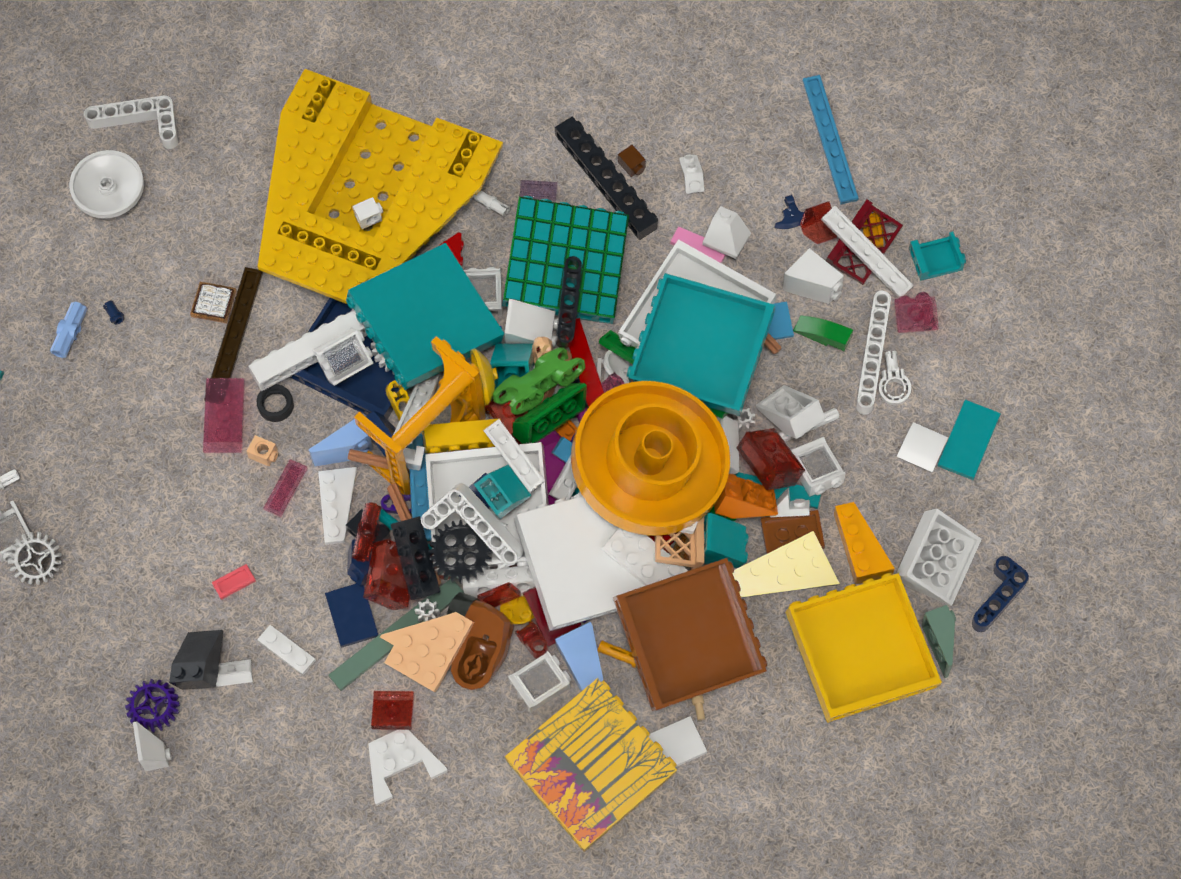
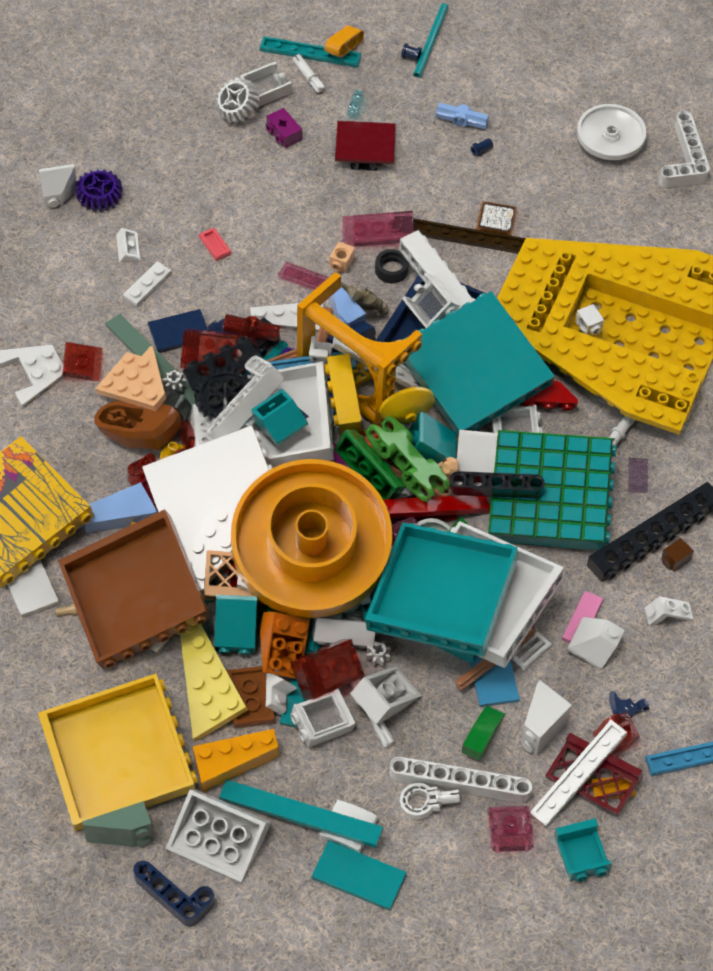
camera: 85 degrees right, 10 degrees down
(42, 437) = (355, 103): none -> clear light blue beam
(64, 511) = (283, 128): none -> magenta brick
(100, 428) = (365, 143): none -> dark red piece
(197, 660) = (136, 215): black slope -> none
(328, 423) = (366, 299): none -> dark tan piece
(514, 455) = (316, 426): white tile -> none
(540, 681) = (100, 473): white window -> none
(914, 486) = (301, 813): none -> teal tile

